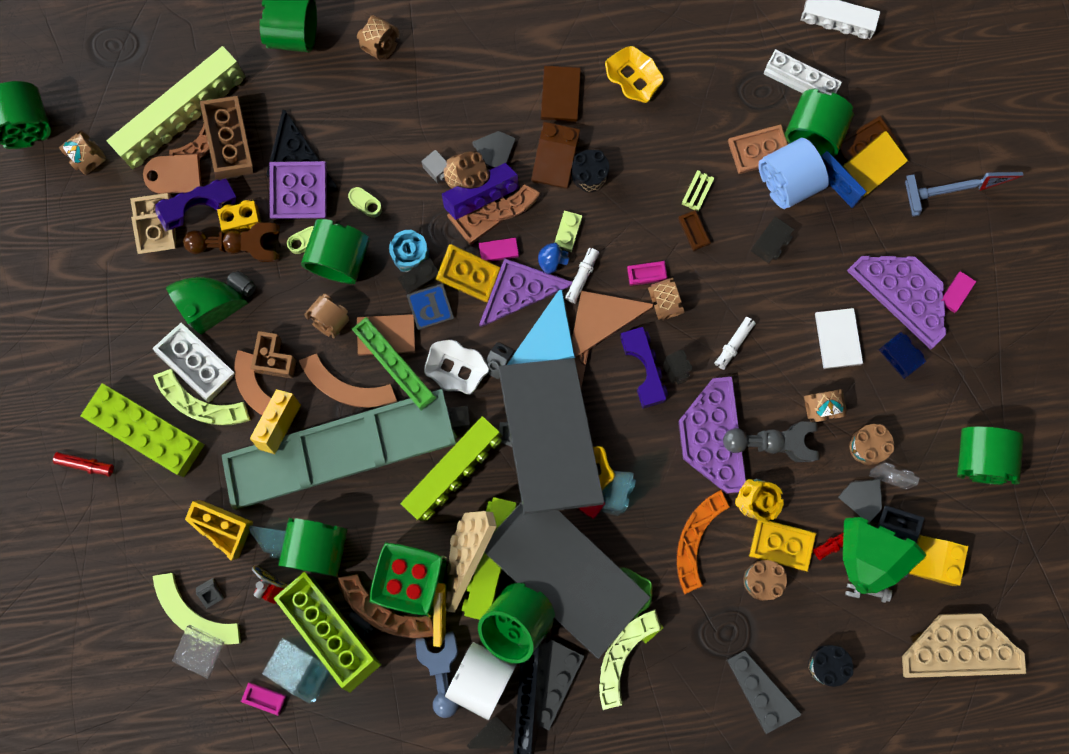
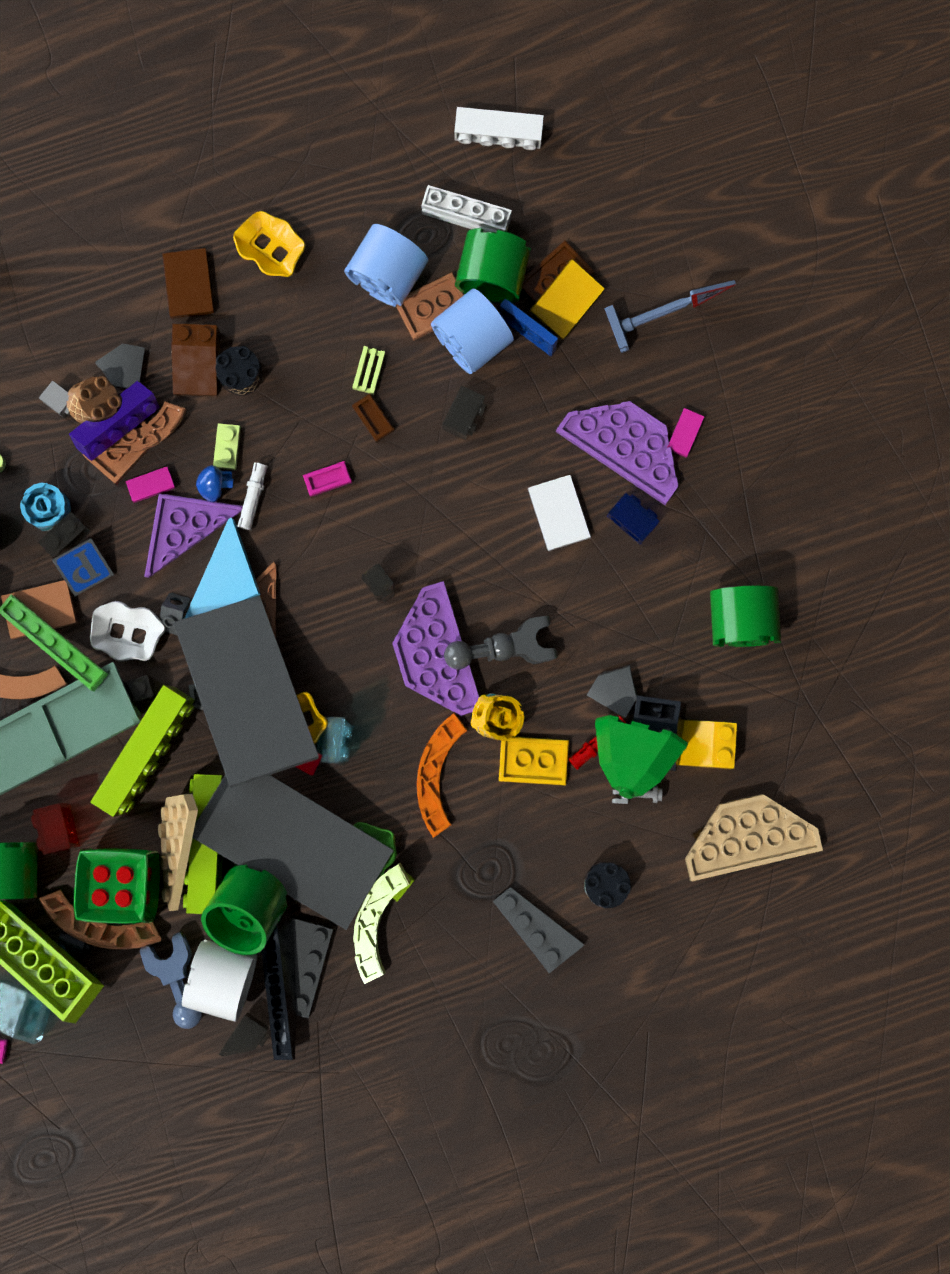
camera: 15 degrees left, 5 degrees up
(364, 520) = (55, 828): none -> clear red brick
(439, 617) = (160, 916): yellow tile -> none
(468, 273) = (119, 520): yellow tile -> none
(601, 317) = (283, 540): nougat tile -> none
(636, 344) = (329, 566): dark purple arch -> none
(667, 299) = (353, 506): medium nougat brick -> none
(730, 106) = (386, 265): none -> light blue brick
(731, 348) = (436, 551): white pin -> none
(765, 580) = (519, 805): medium nougat brick -> none
(825, 404) = (553, 594): medium nougat brick -> none
(871, 444) = (613, 628): medium nougat brick -> none
(887, 473) = (651, 661): clear plate -> none

